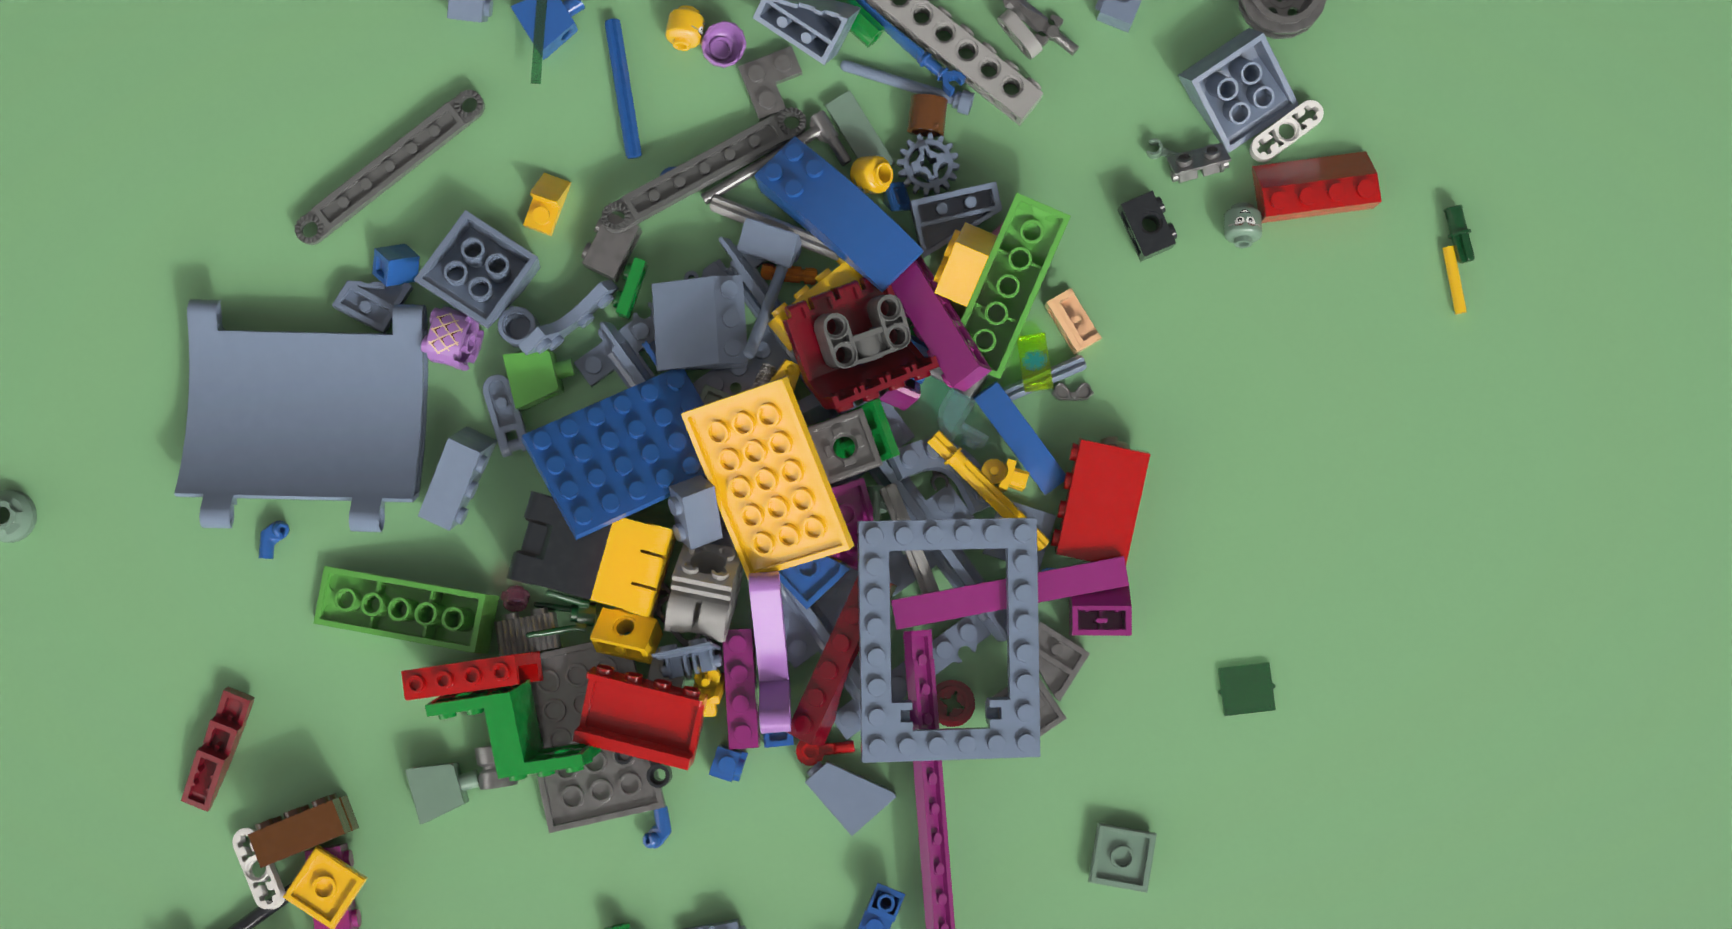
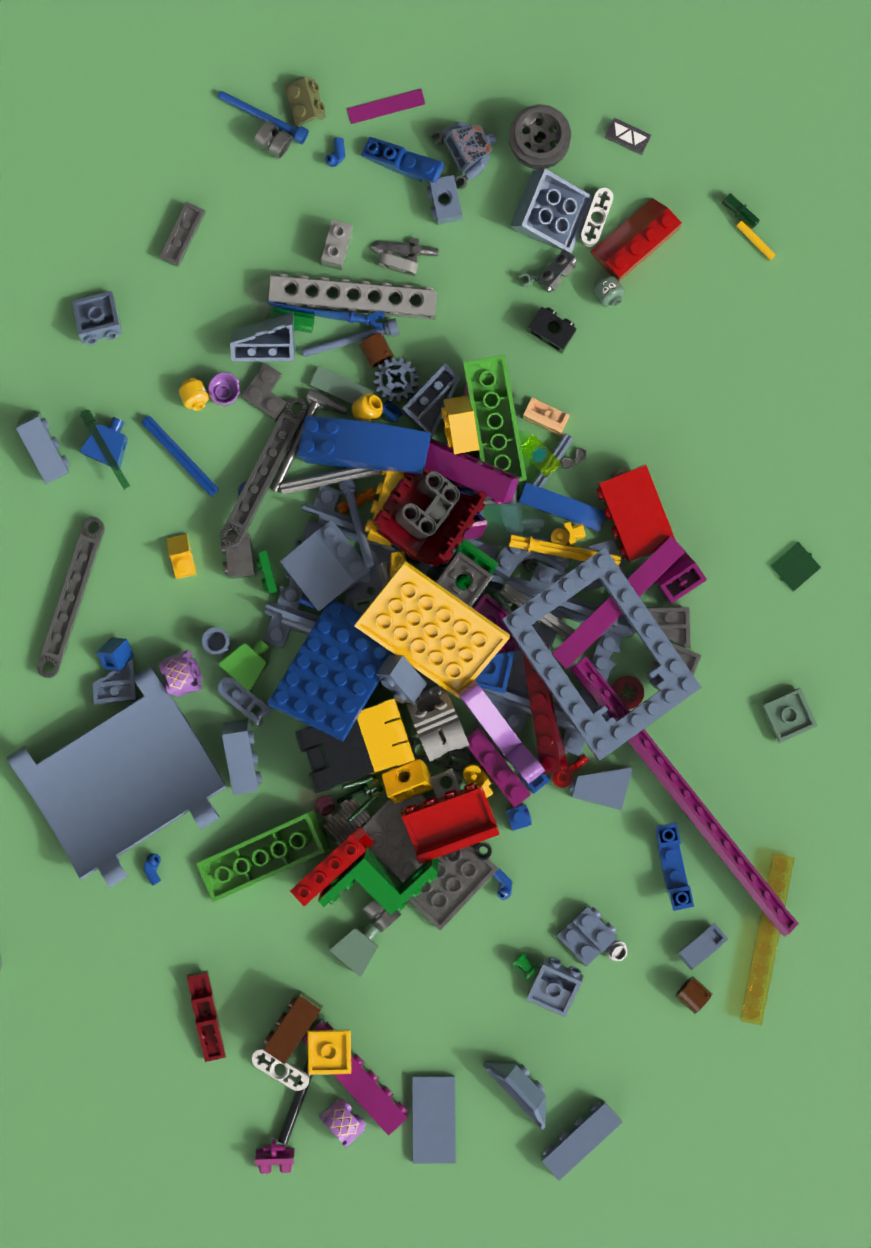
camera: 35 degrees left, 0 degrees up
(478, 270) = (169, 623): sand blue slope -> none
(581, 315) = (240, 632): sand blue plate -> none
(699, 647) = (444, 772): sand blue hinge -> none
(769, 242) = (333, 490): sand blue slope -> none
(1385, 61) = (628, 136): none -> tile

